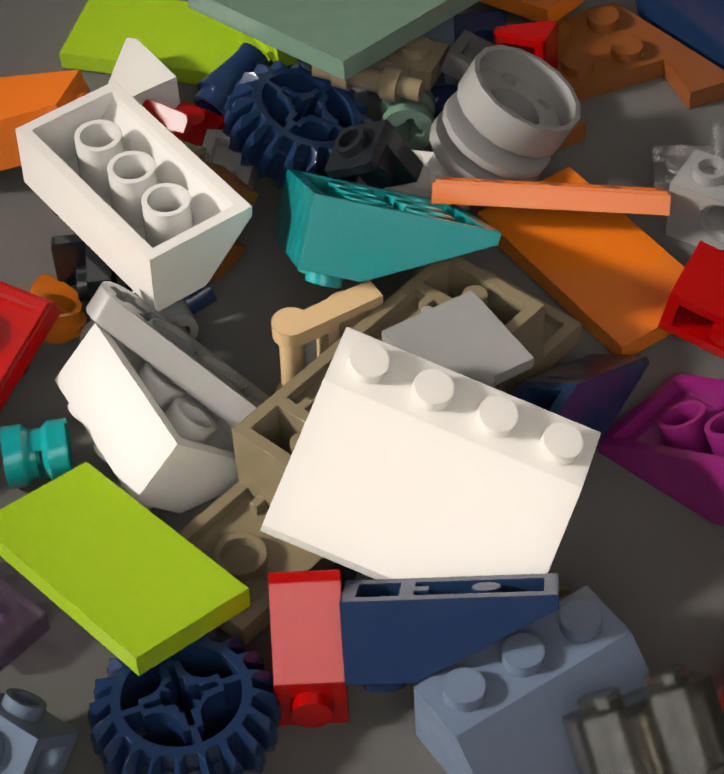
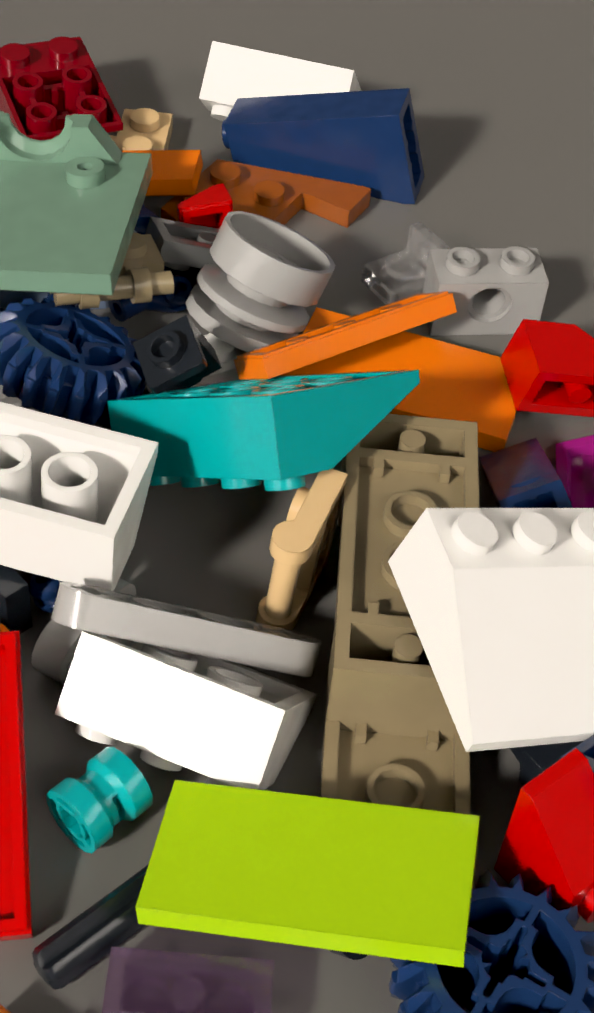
camera: 45 degrees left, 0 degrees up
(416, 131) = (141, 318): sand green wheel -> none
(464, 339) = (448, 478): light grey piece -> none

